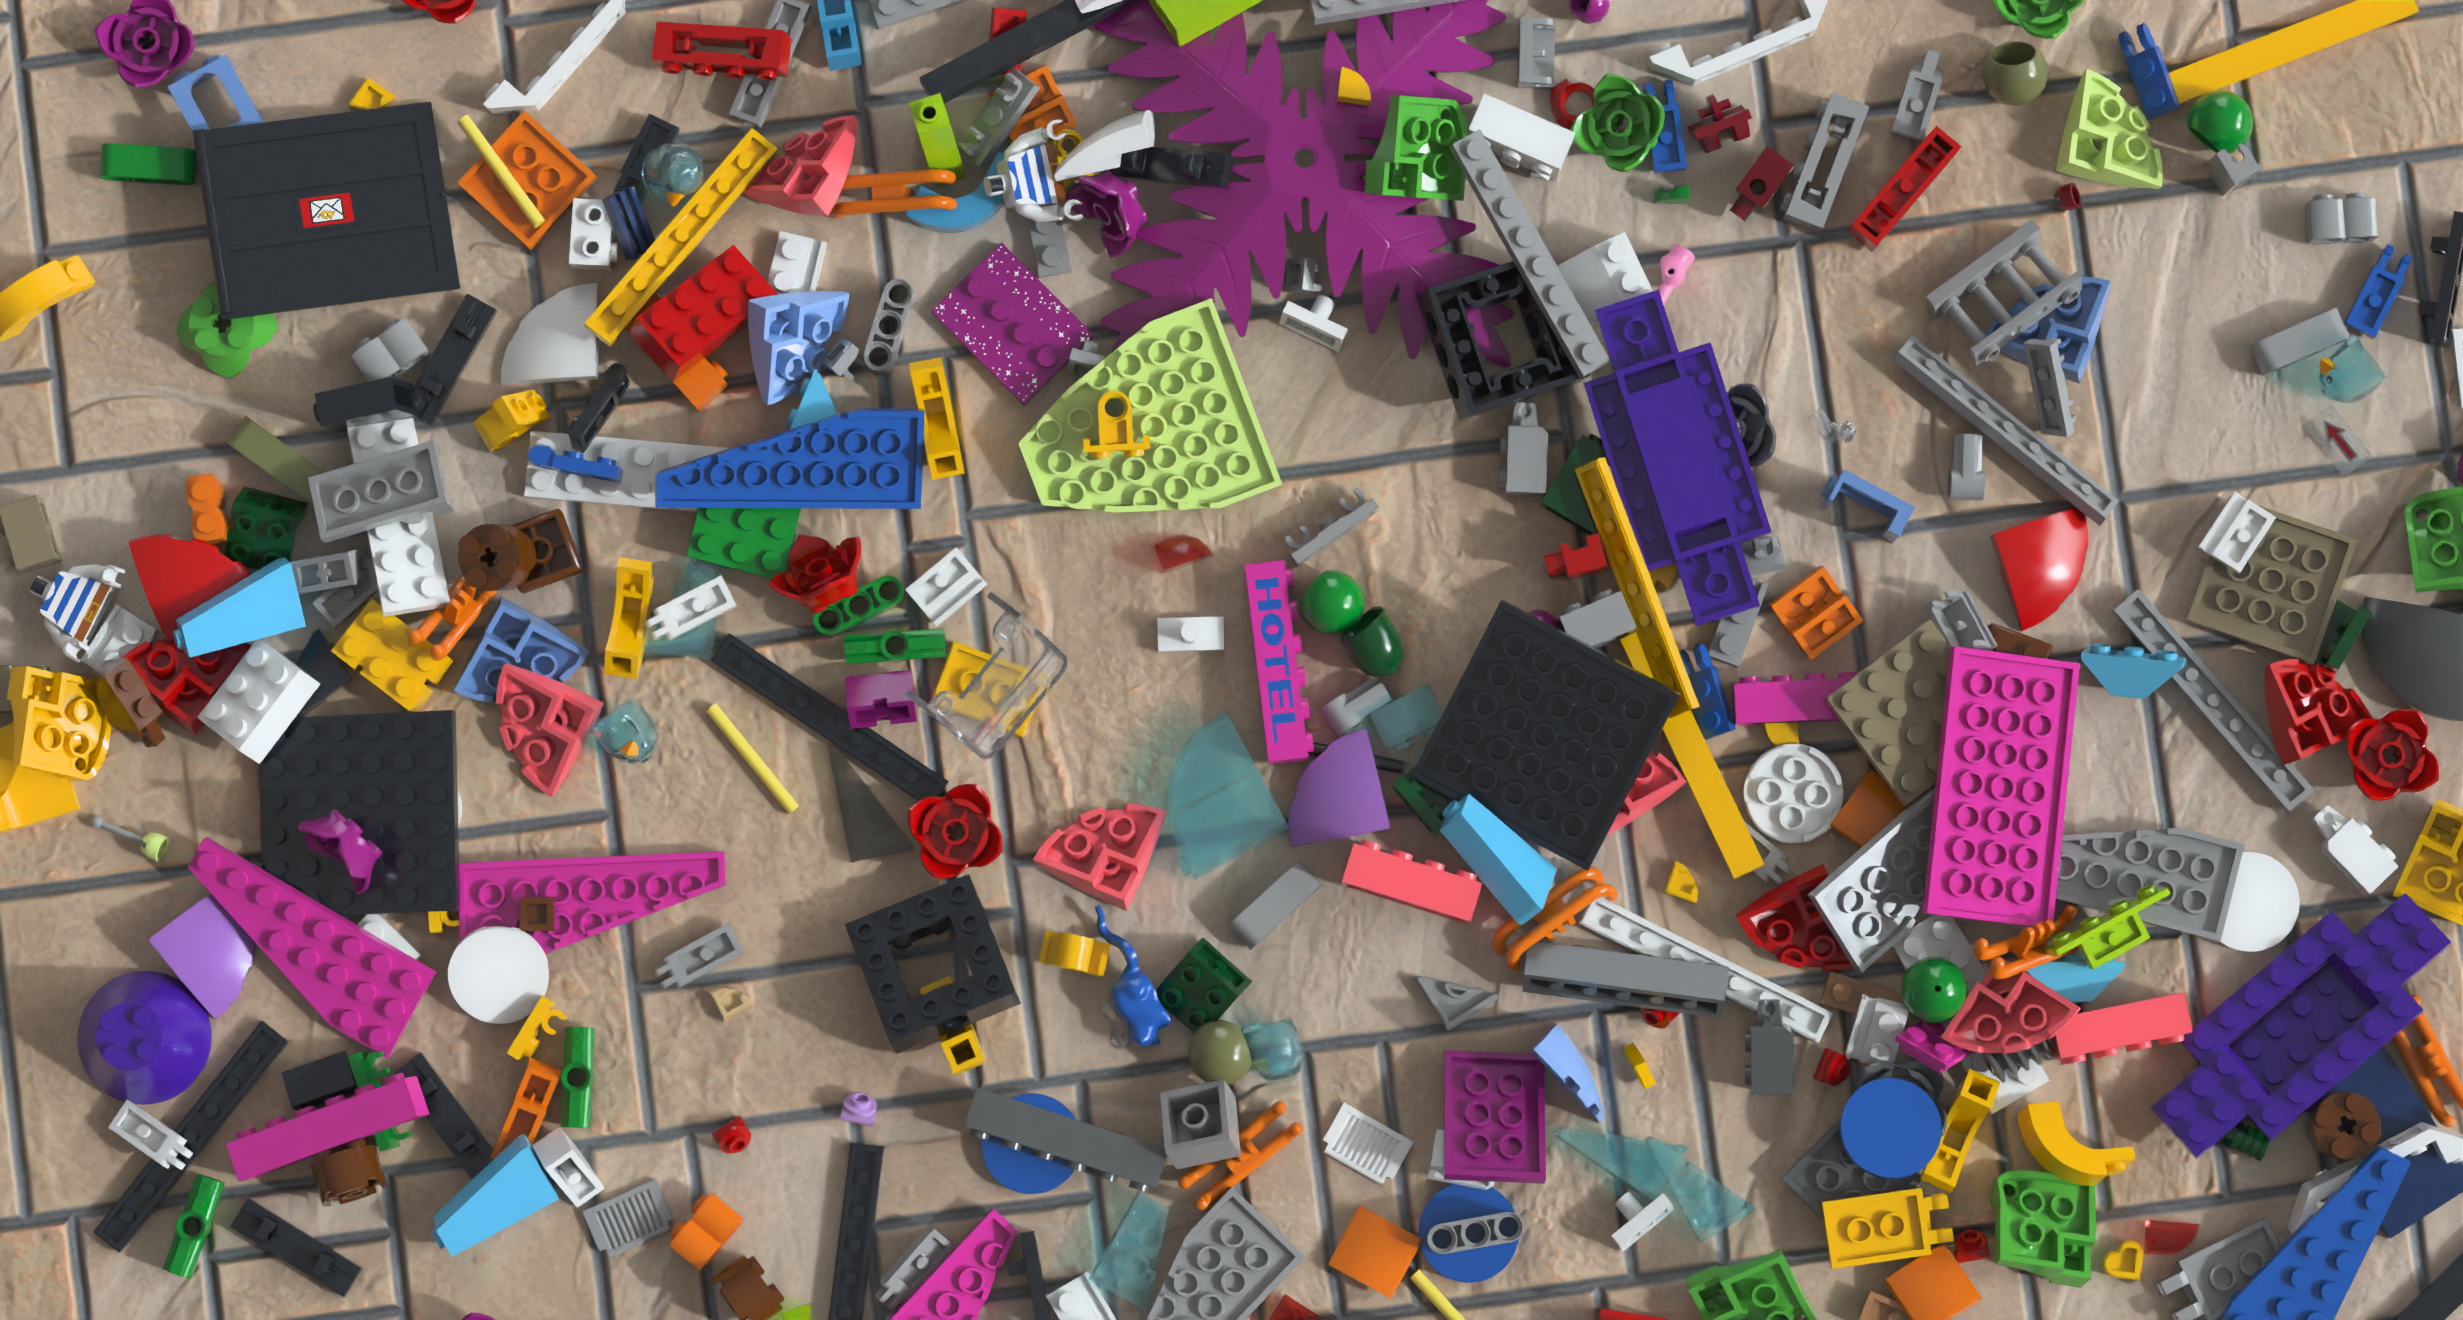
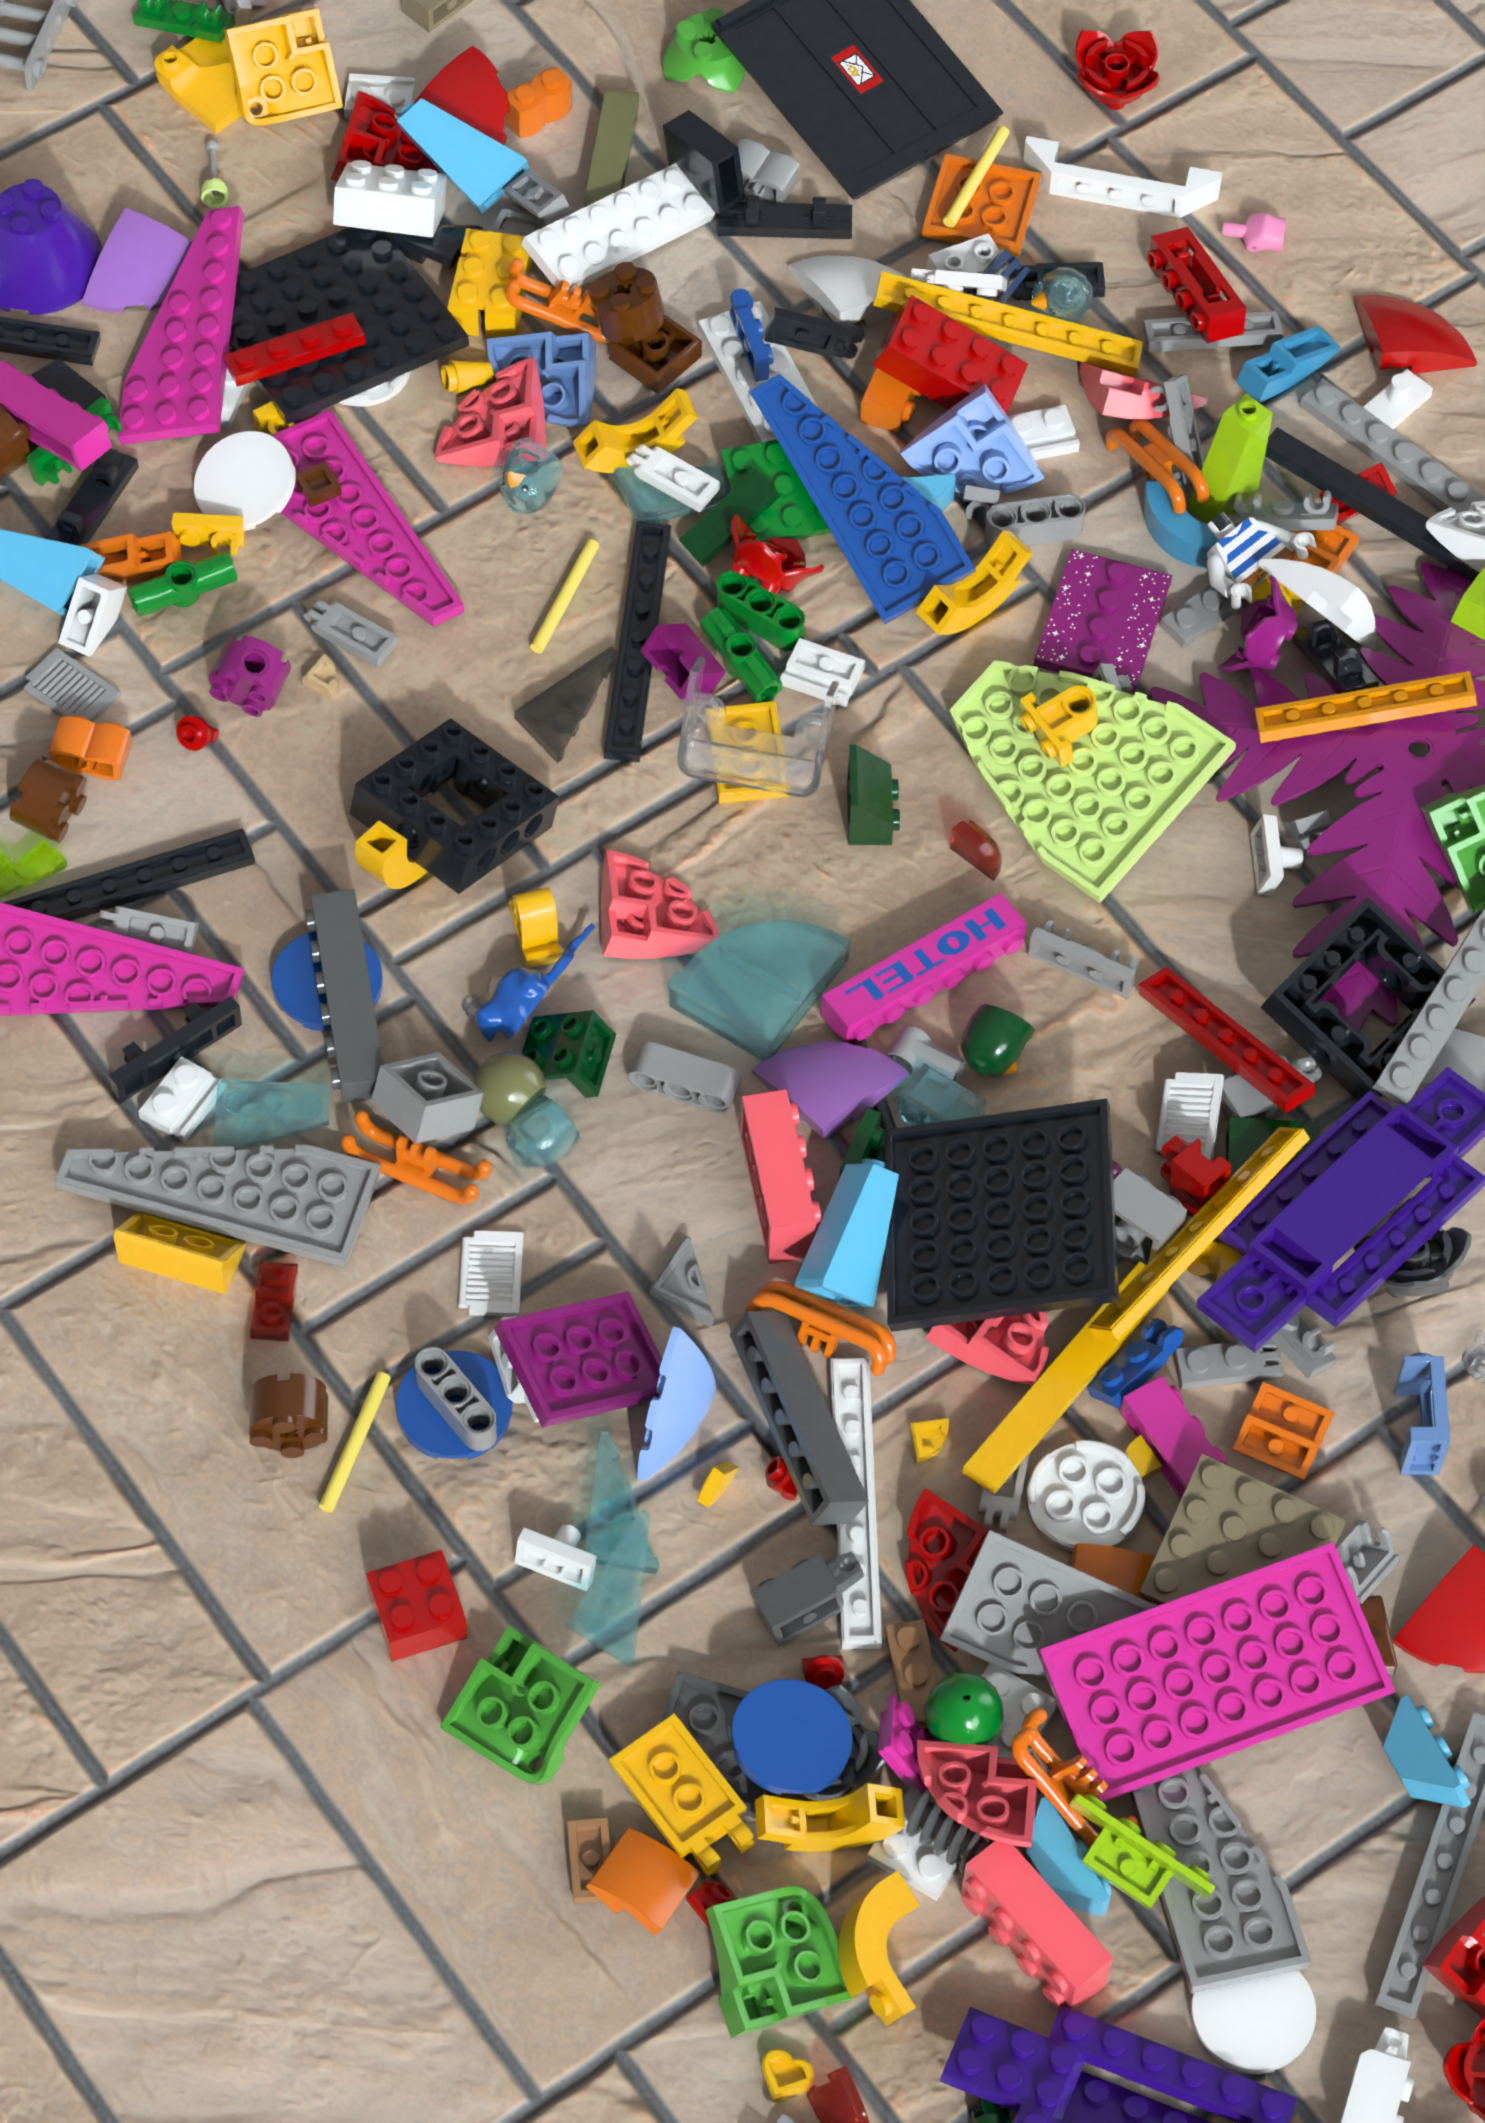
camera: 60 degrees right, 25 degrees down
(76, 604) = (396, 47): torso -> none
(126, 700) = (332, 109): reddish brown hinge -> none
(262, 527) = (550, 143): dark green bracket -> none
(341, 840) = (291, 293): magenta brick -> none
(371, 96) = (980, 68): yellow tile -> none
(380, 492) = (633, 193): light grey hinge -> none
(391, 868) = (294, 349): none -> red plate
(478, 727) = (465, 375): none -> yellow cone
(511, 418) = (762, 274): yellow pin -> none
(620, 257) = (985, 284): none -> white hinge
(699, 1081) = (248, 674): none -> magenta brick
(753, 577) = (714, 529): none -> dark green tile
(859, 1109) = (279, 822): lavender plate -> none
(870, 152) = (1182, 423): none -> light grey plate
(929, 824) = (590, 754): red brick -> none
(1097, 618) = (870, 799): none -> dark green slope
(1190, 634) = (905, 892): white tile -> none
(1246, 179) = (1365, 706): none -> light orange plate
(1332, 603) = (1013, 983): green helmet -> none
(1375, 1252) = (385, 1325): orange slope -> none
(1473, 464) = (1226, 1039): none -> red plate
(1518, 528) = (1191, 1110): none -> white window
(1876, 1029) = (897, 1676): white plate -> none

